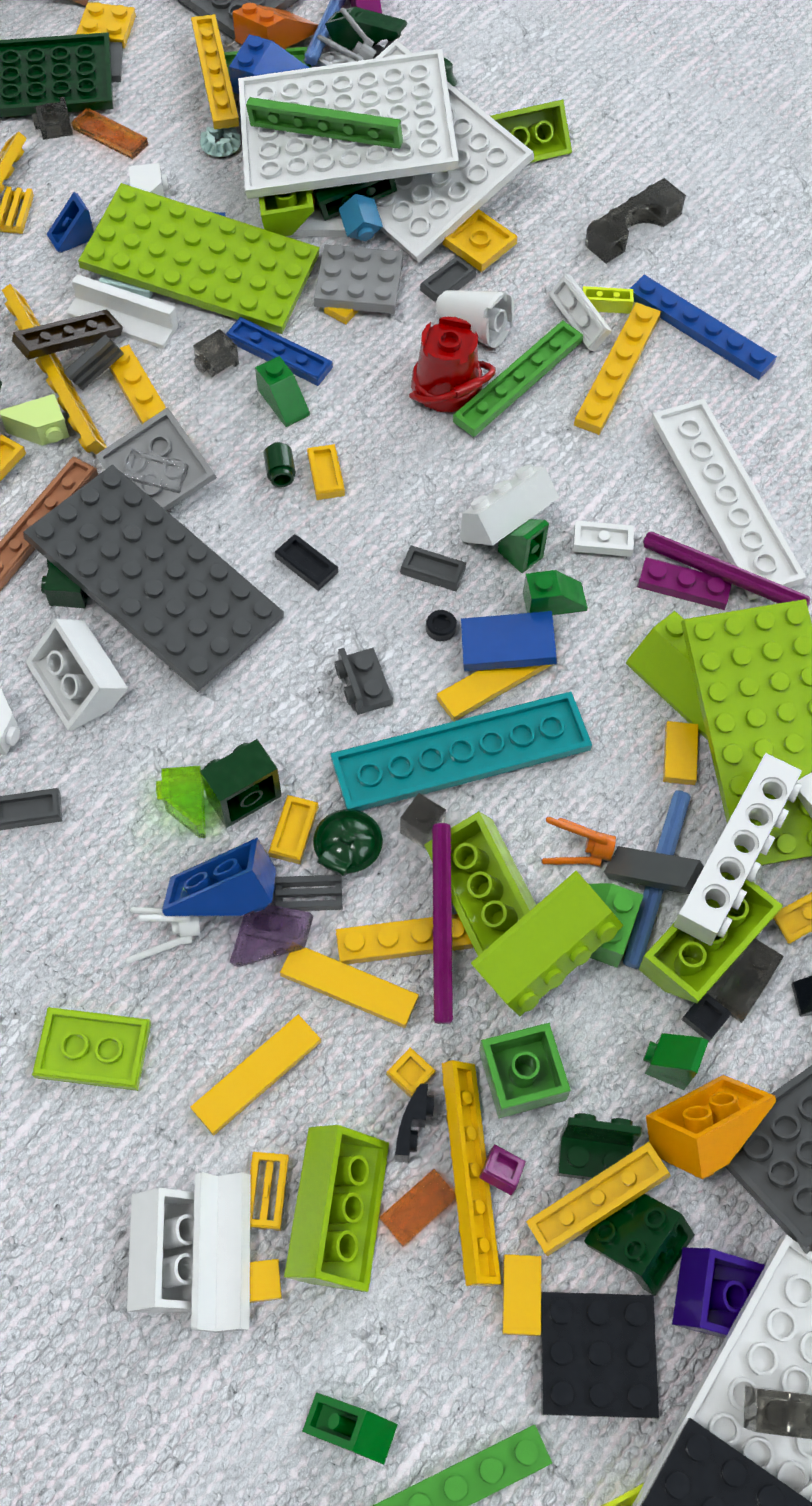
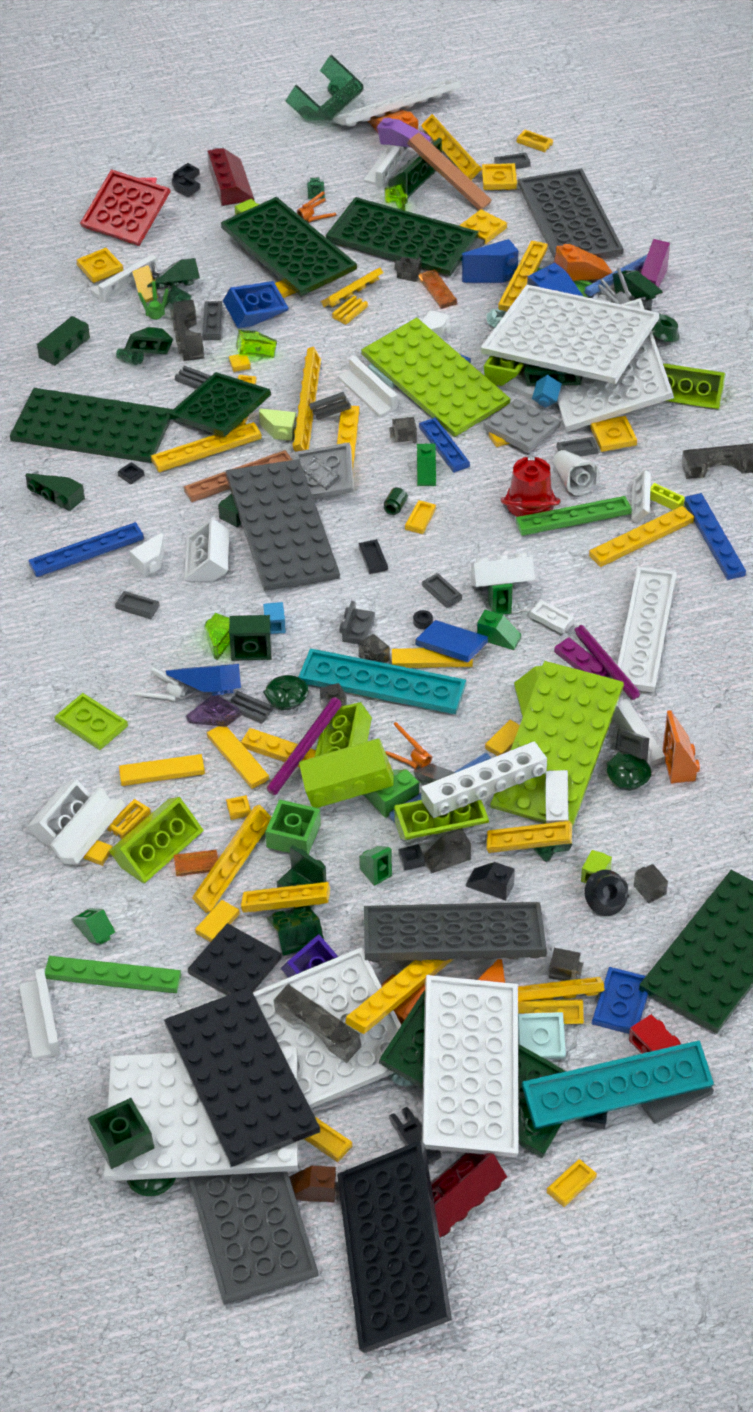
camera: 35 degrees right, 15 degrees down
(66, 334) = (325, 384): dark brown plate -> none
(71, 226) = (373, 330): blue slope -> none
(161, 68) = (490, 263): none -> blue slope
(244, 725) = (277, 616): none -> dark azure brick
(293, 829) = (259, 679): yellow tile -> none
(325, 122) = (552, 327): bright green plate -> none
(415, 1115) = (223, 821): black slope -> none
(420, 709) = (374, 649): none -> clear smoke brick
(502, 1169) = (249, 865): magenta tile -> none
(708, 1125) = (362, 894): light orange slope -> none

